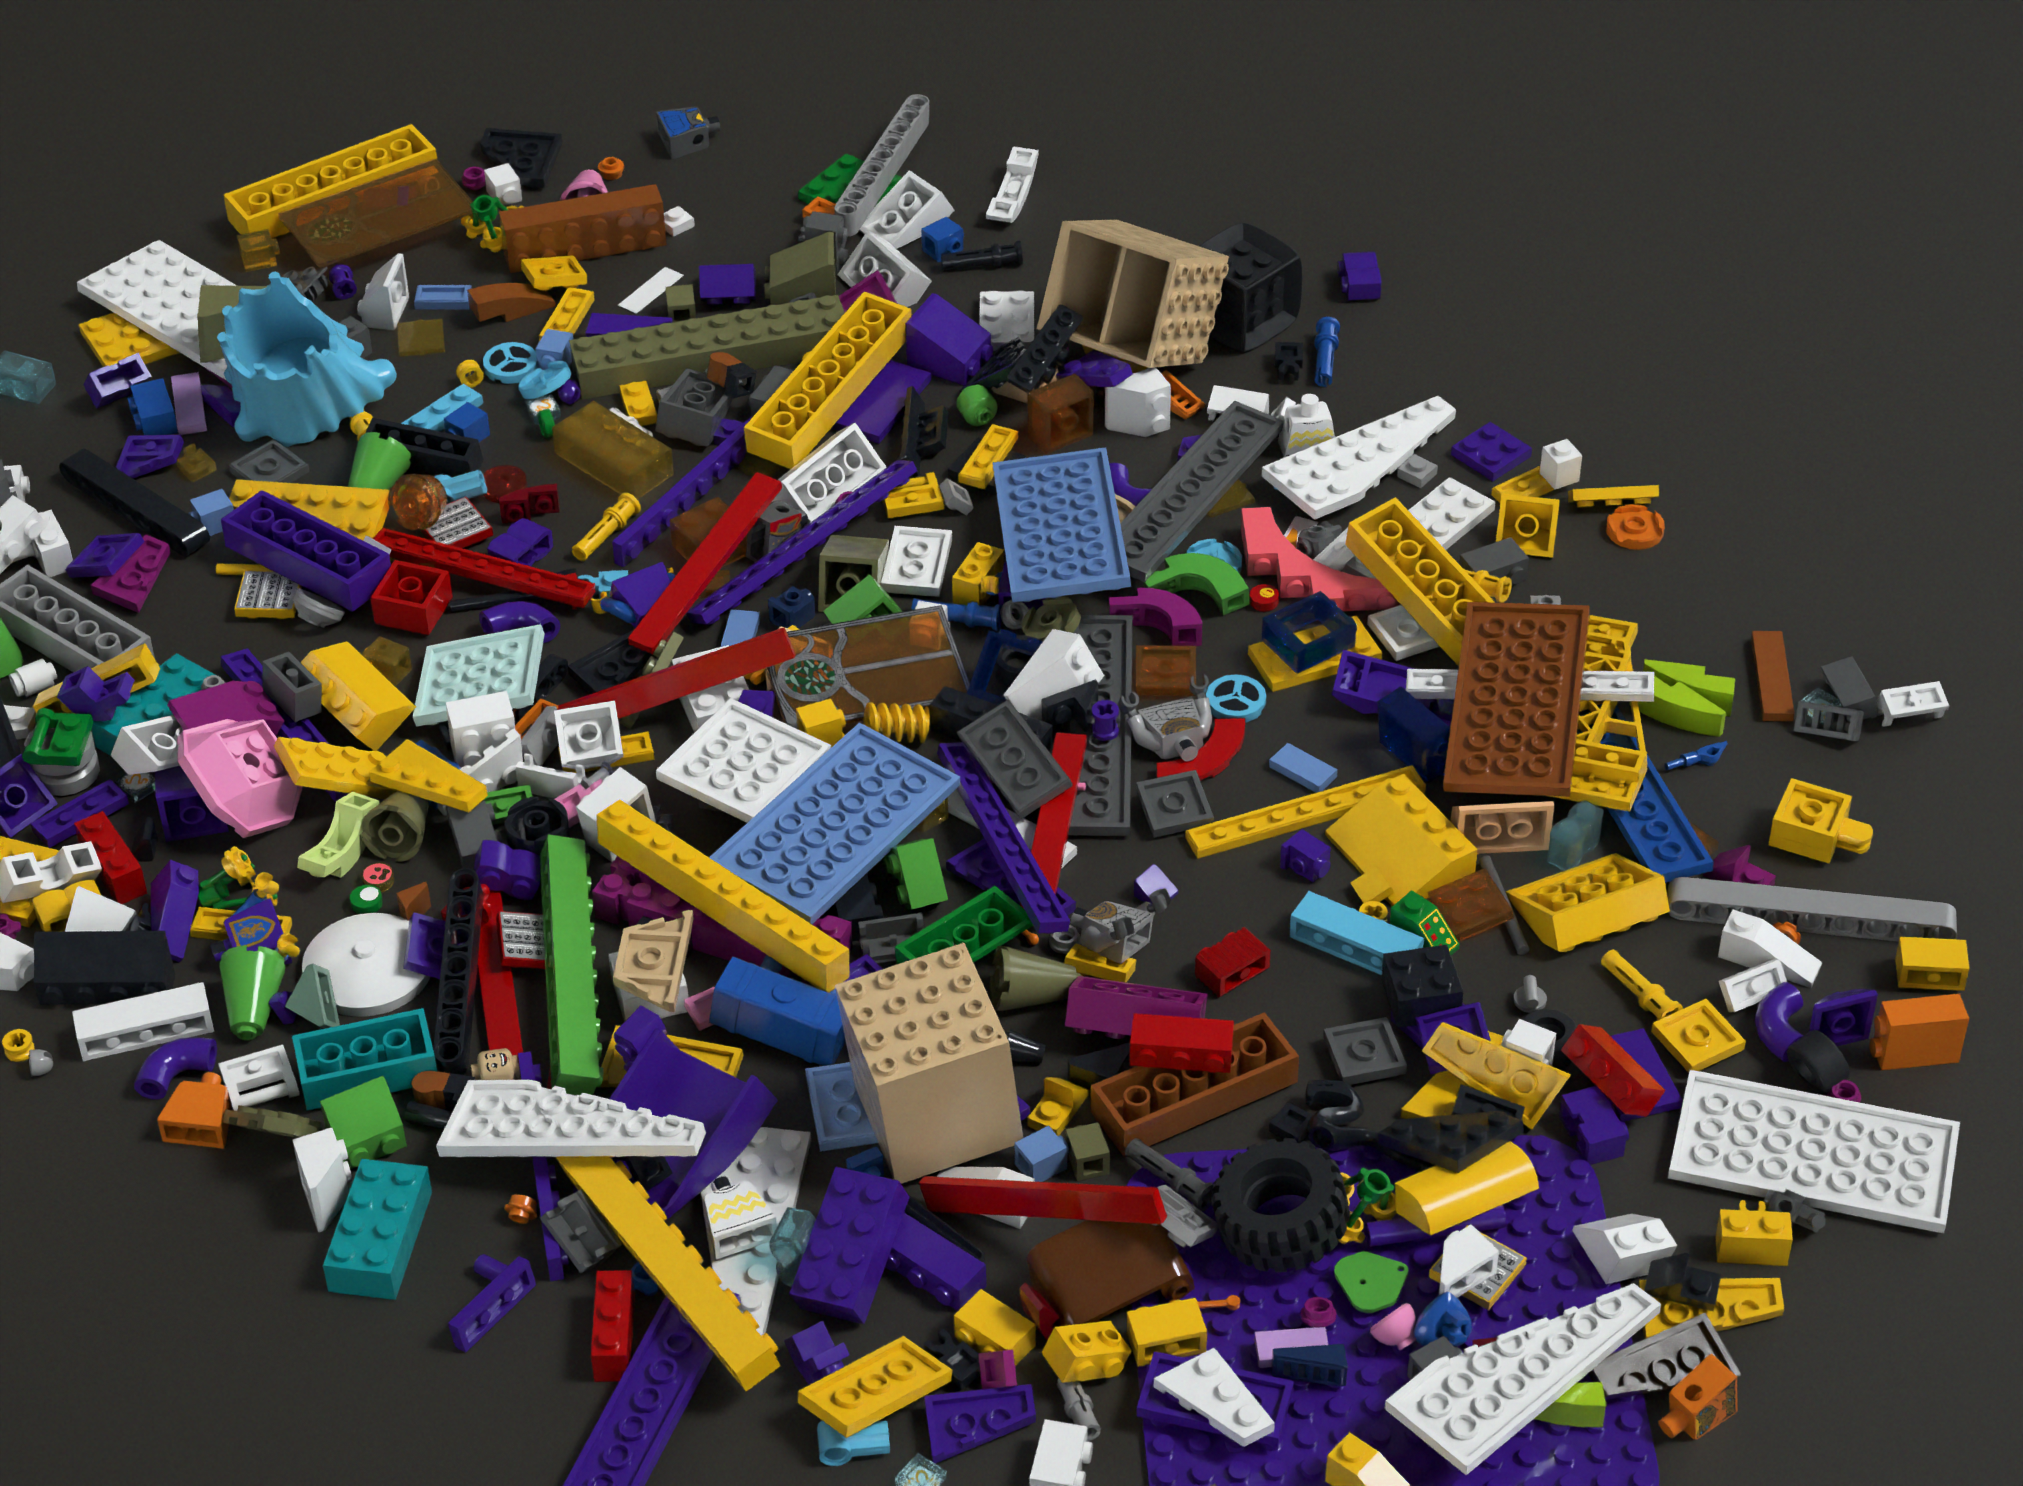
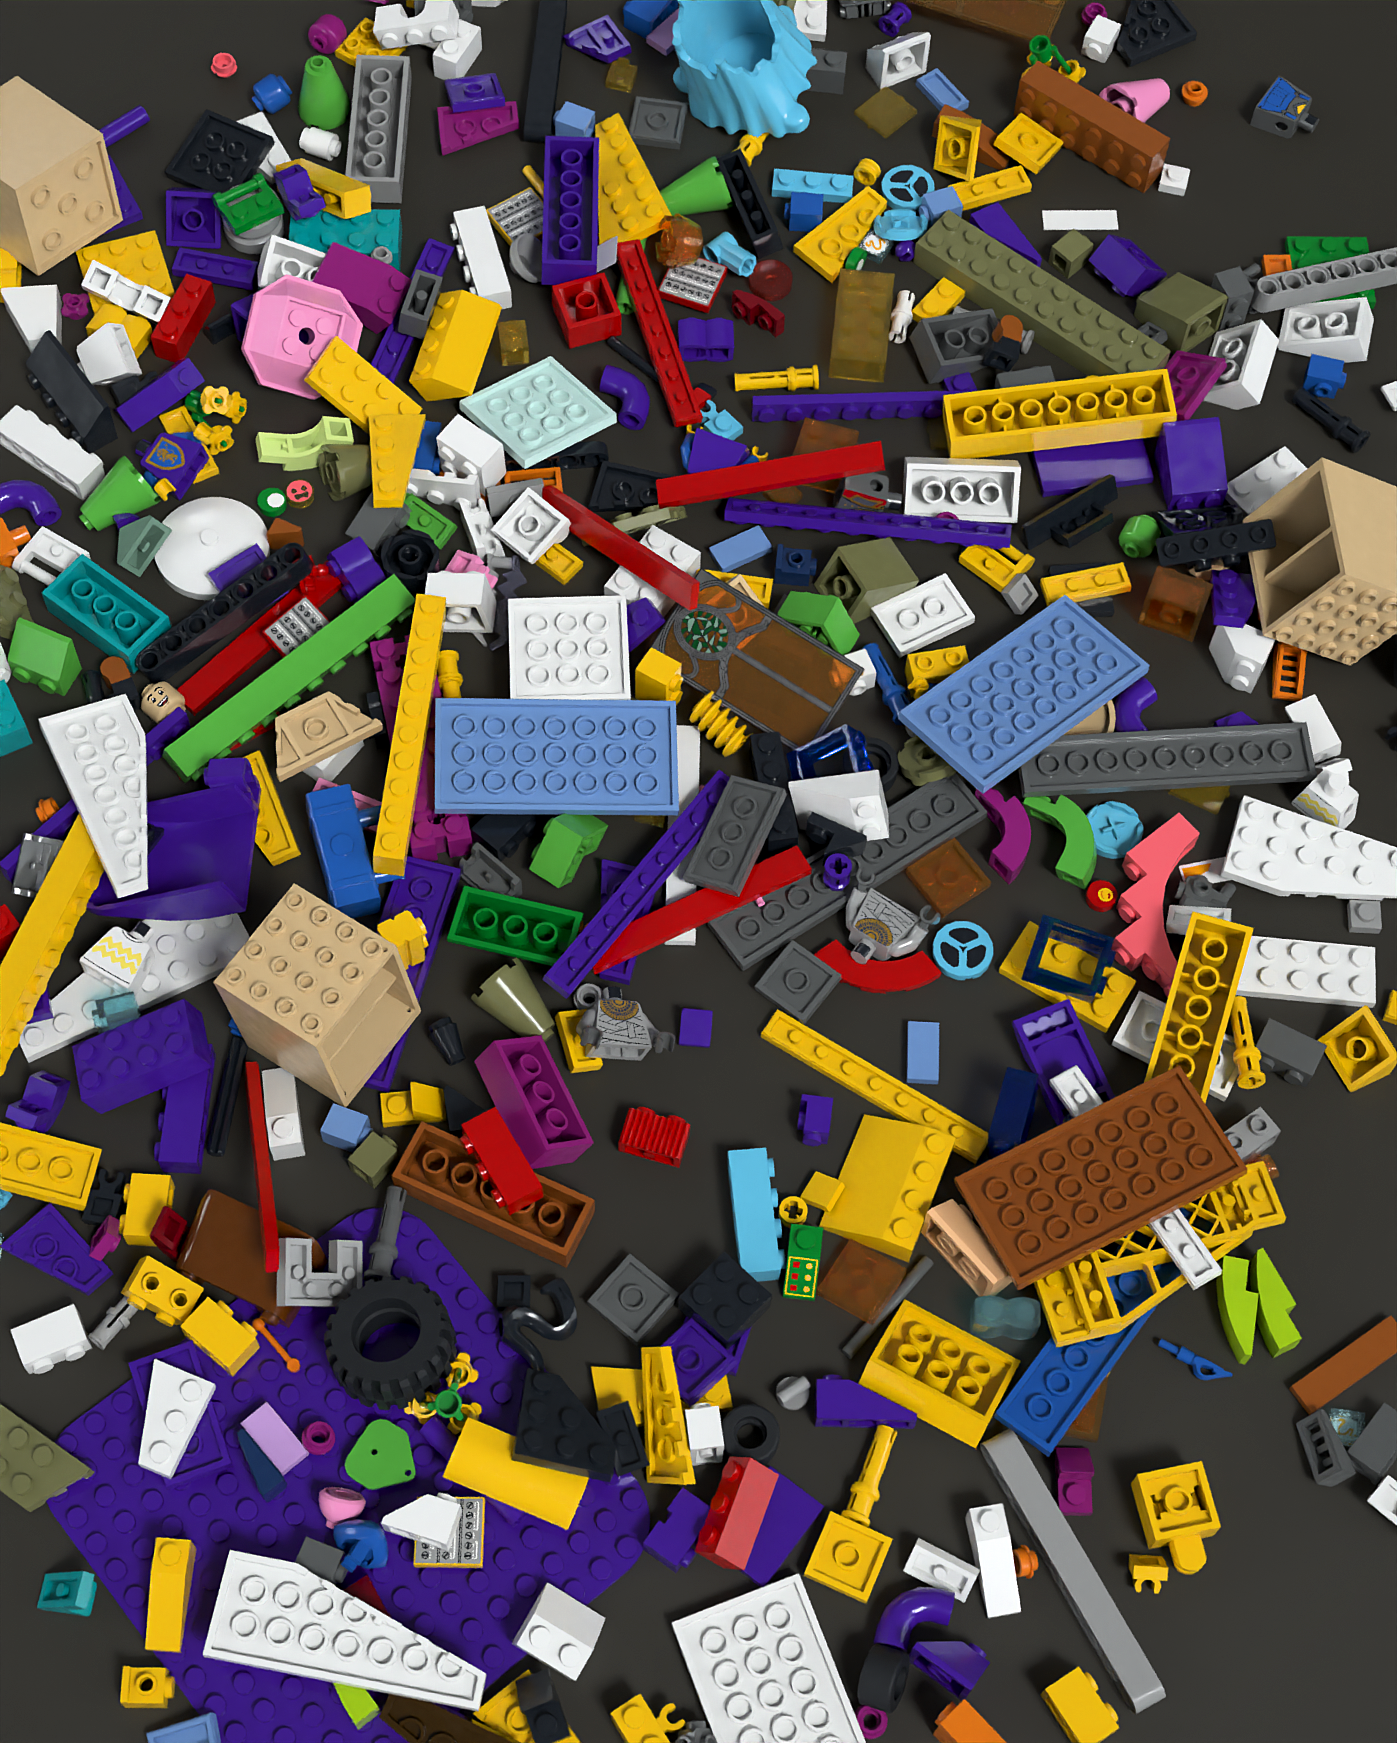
camera: 50 degrees right, 20 degrees up
(272, 633) = (481, 256): none -> white brick
(511, 420) = (834, 239): none -> yellow wing
(517, 304) = (957, 146): none -> yellow slope
(1575, 962) = (852, 1405): none -> dark purple slope
(1847, 869) = (1148, 1568): none -> yellow tile

